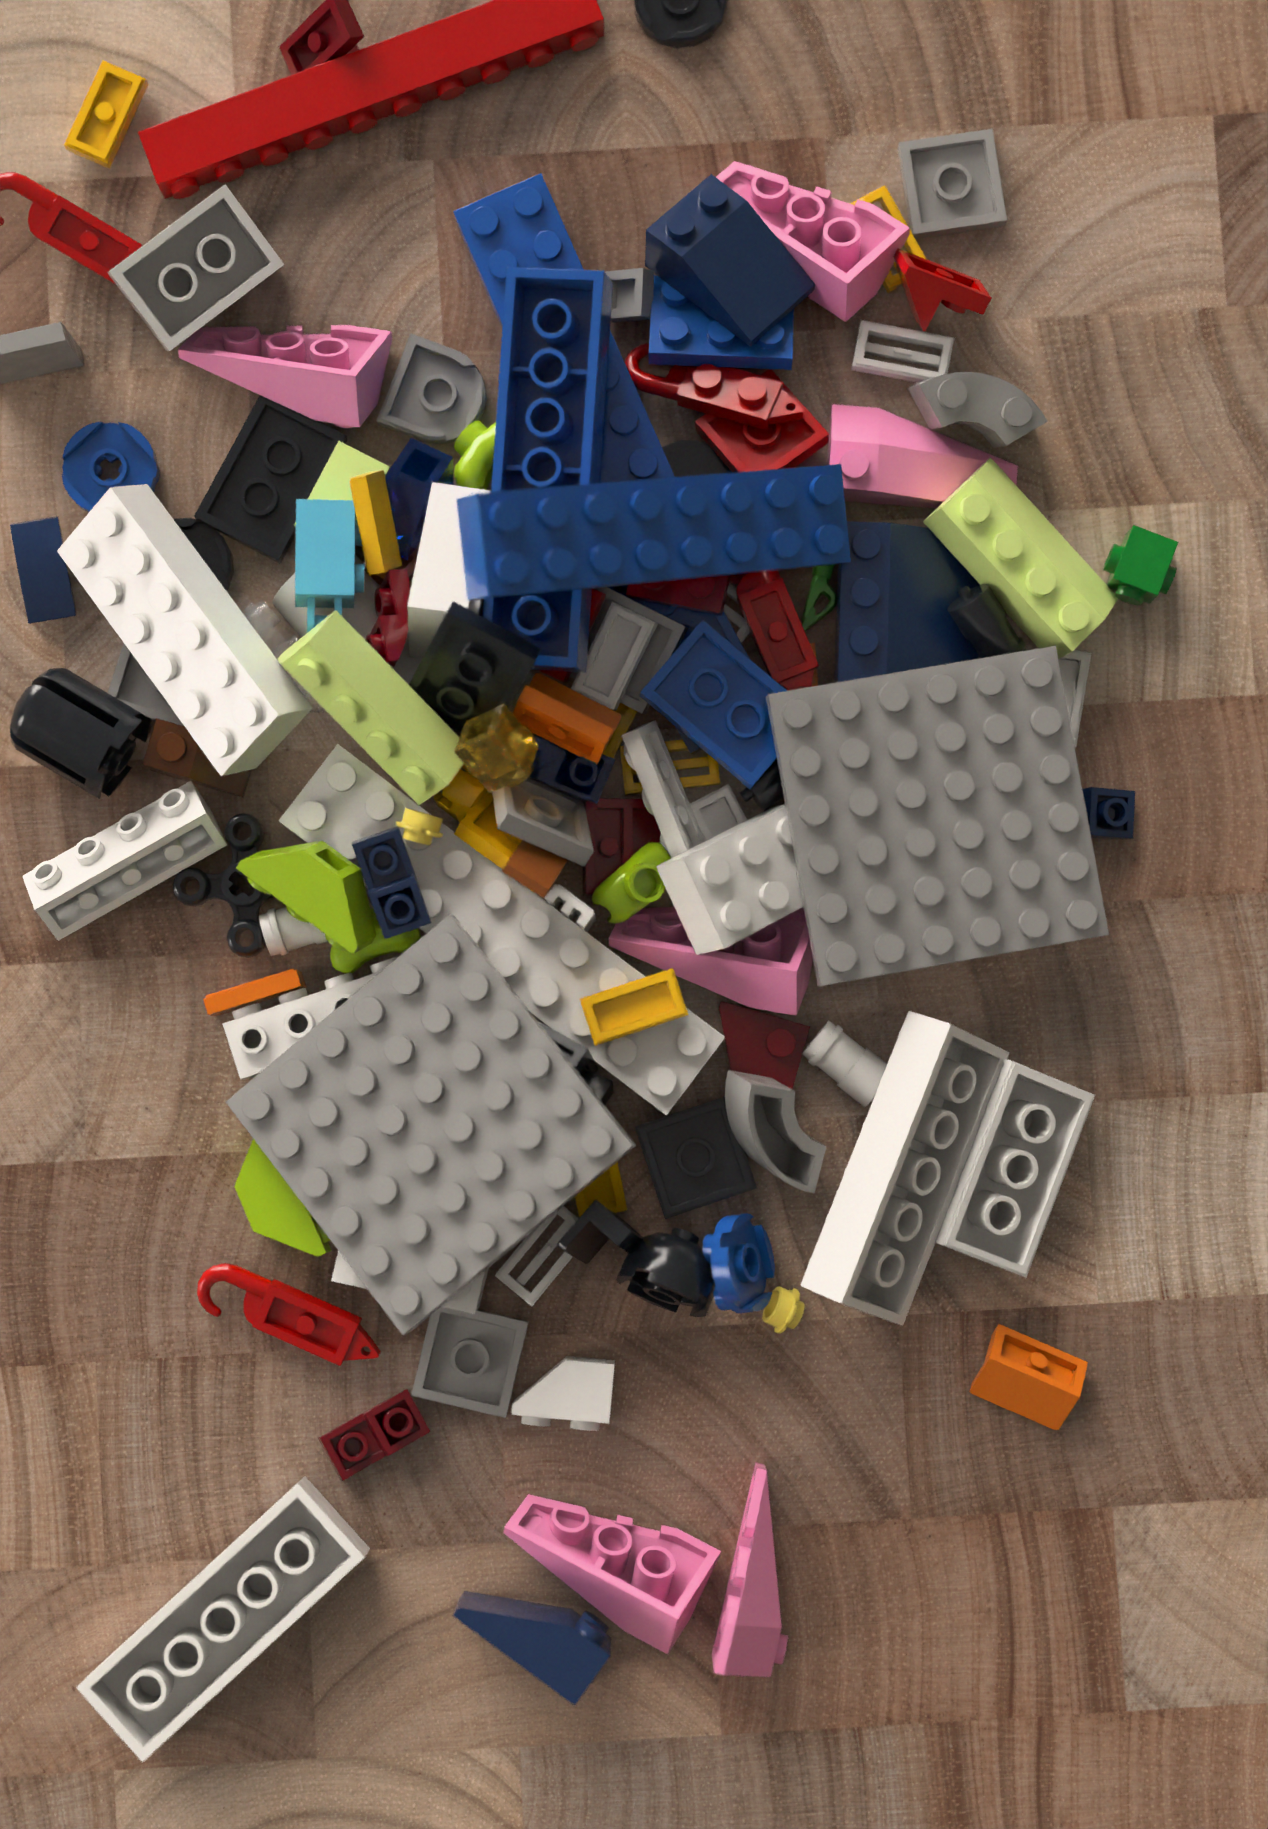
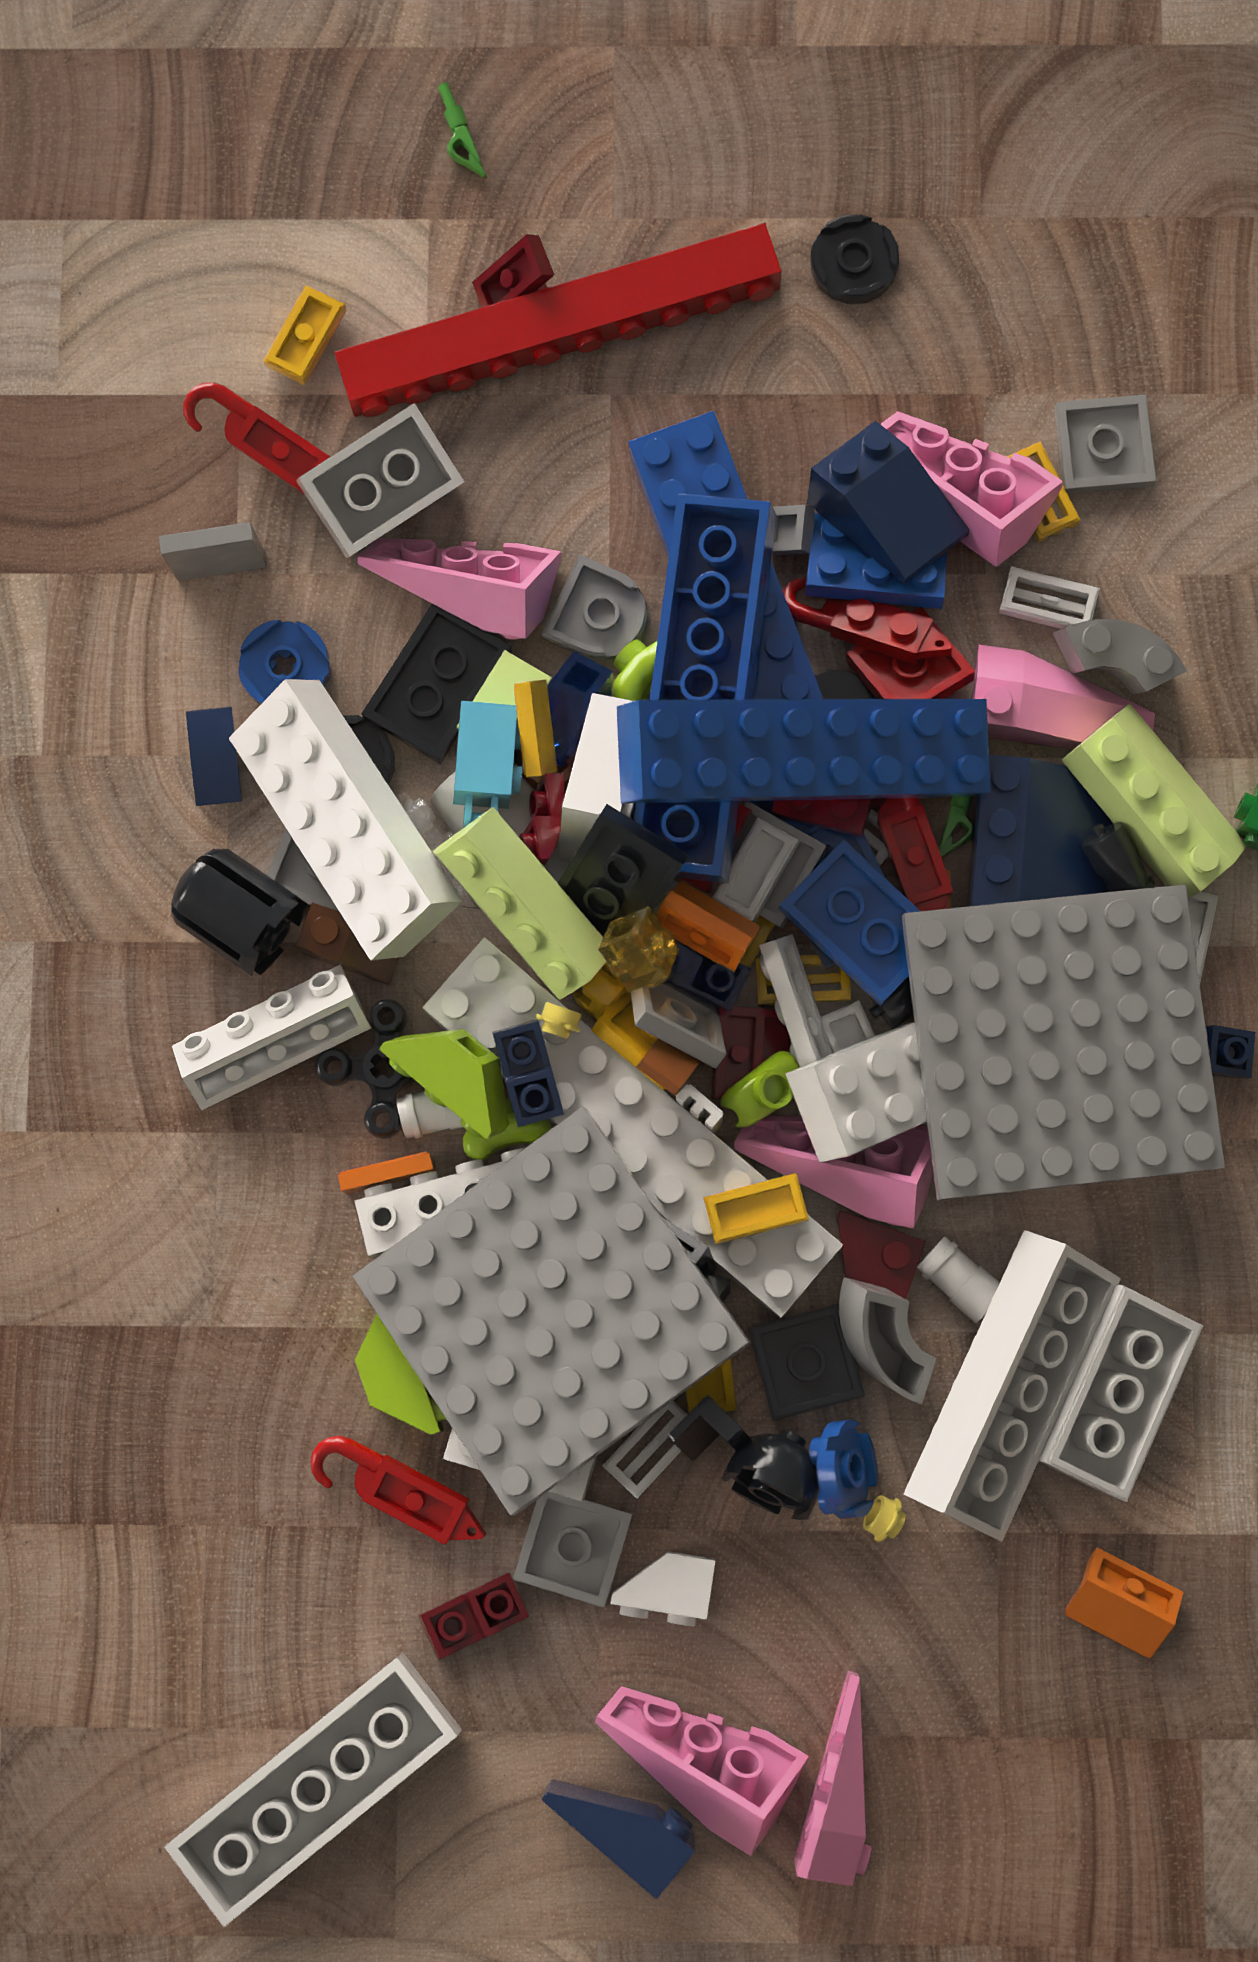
camera: 10 degrees right, 5 degrees down
(931, 283) = (1078, 536): red slope -> none

